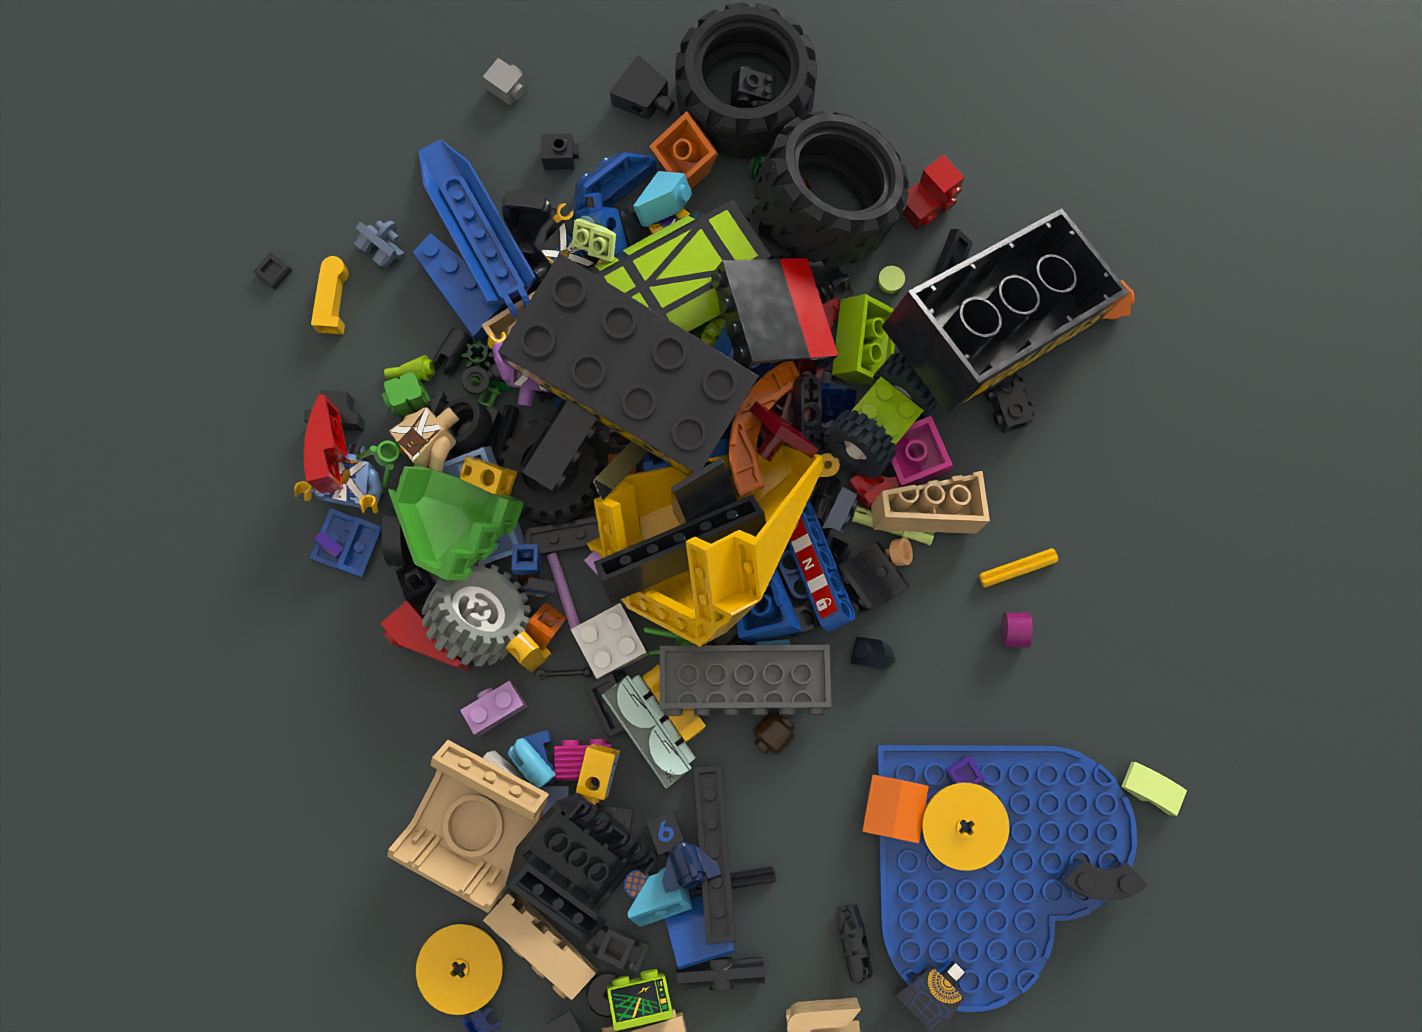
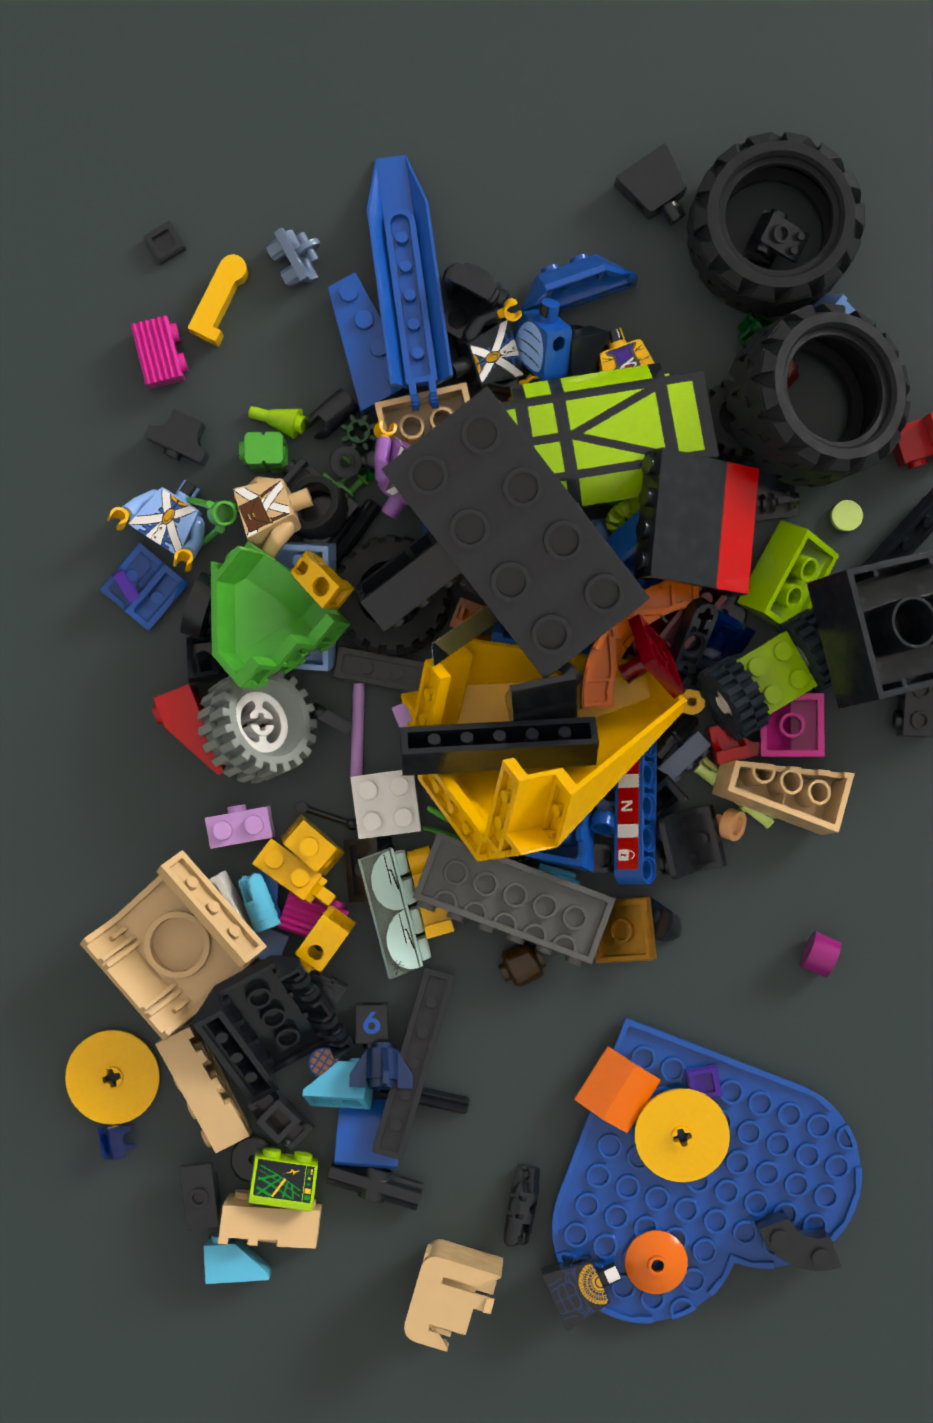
camera: 15 degrees right, 10 degrees up
(294, 353) = (158, 352): none -> dark pink brick
(324, 447) = (158, 481): red slope -> none
(505, 81) = (503, 115): light grey brick -> none
(526, 564) = (329, 686): blue leg -> none
(527, 651) = (298, 783): yellow leg -> none
(544, 625) = (325, 760): orange slope -> none
(552, 729) = (293, 874): none -> yellow hinge
(558, 151) = (533, 224): black brick -> none
(561, 701) = (312, 845): none -> yellow torso
(594, 239) = (534, 355): yellowish green slope -> none
(662, 197) = (628, 330): medium azure slope -> none
(685, 150) = (673, 284): orange slope -> none
(794, 587) = (603, 822): none -> blue hinge
(831, 310) = (763, 527): red tile -> none
(851, 672) = (628, 932): none -> pearl gold tile
(978, 936) = (656, 1246): none -> orange dish
(1018, 567) = (851, 888): yellow axle -> none
(1154, 787) = (893, 1170): yellowish green slope -> none

